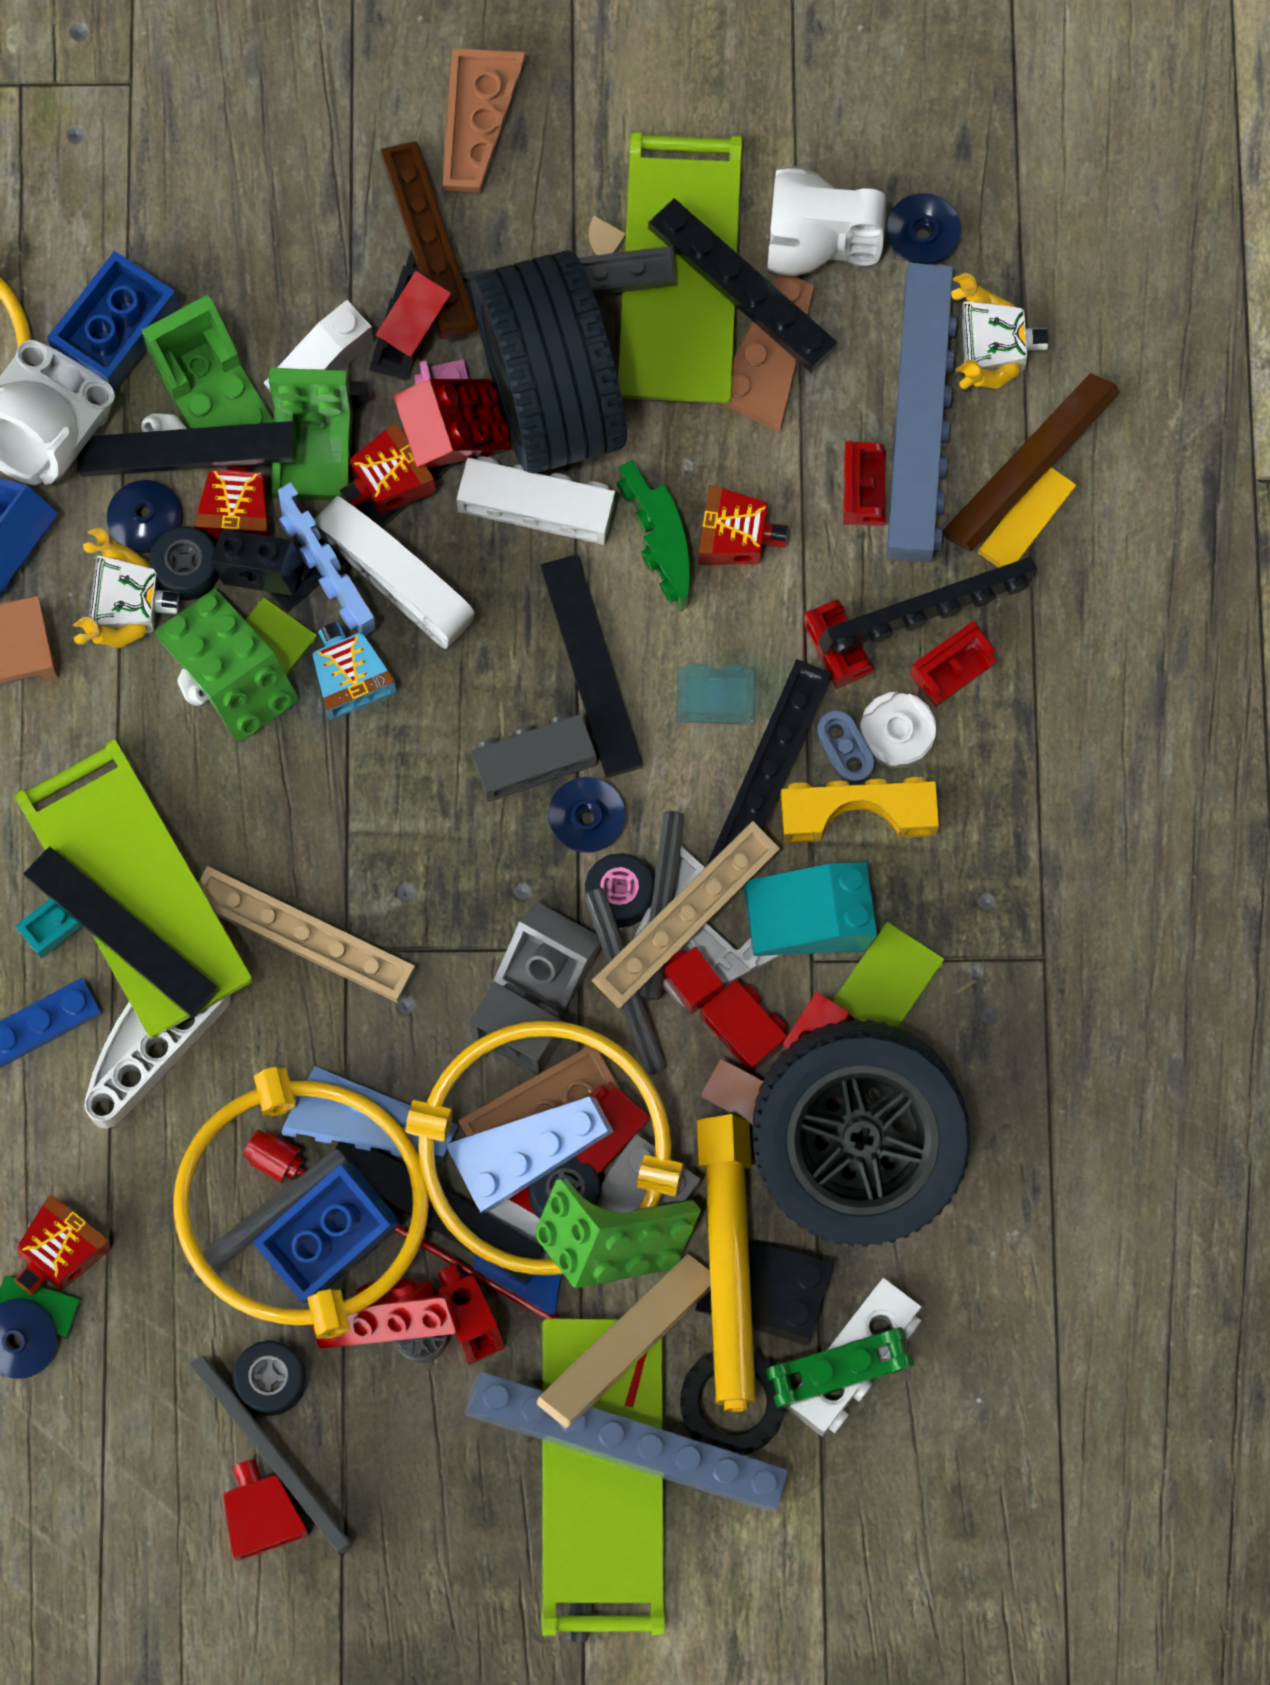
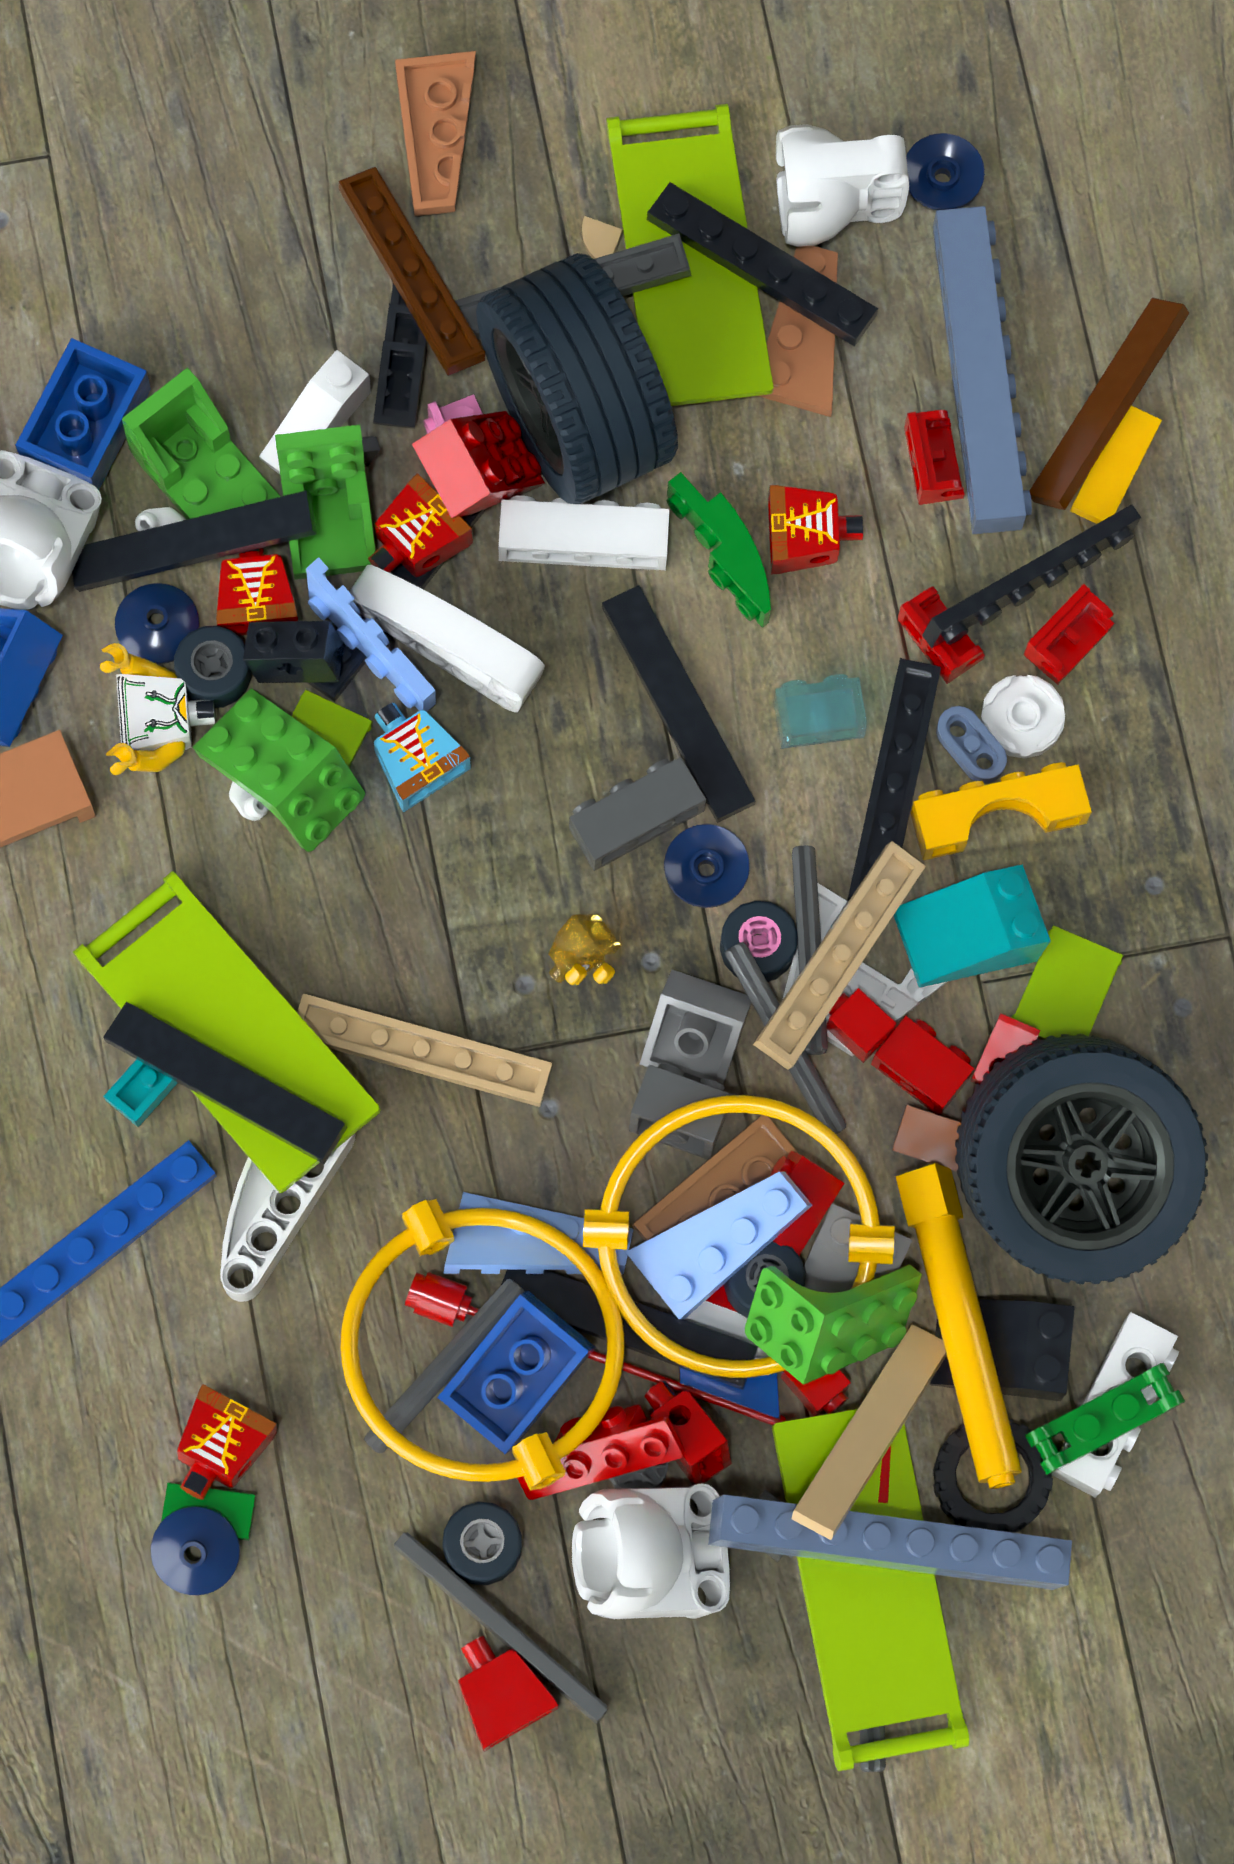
camera: 15 degrees left, 0 degrees up
(412, 1413) = (649, 1553): none -> white piece
(413, 313) = (413, 352): red hinge -> none
(459, 868) = (581, 947): none -> clear yellow piece
(596, 1299) = (820, 1394): none -> red brick
(993, 336) = (1041, 275): torso -> none

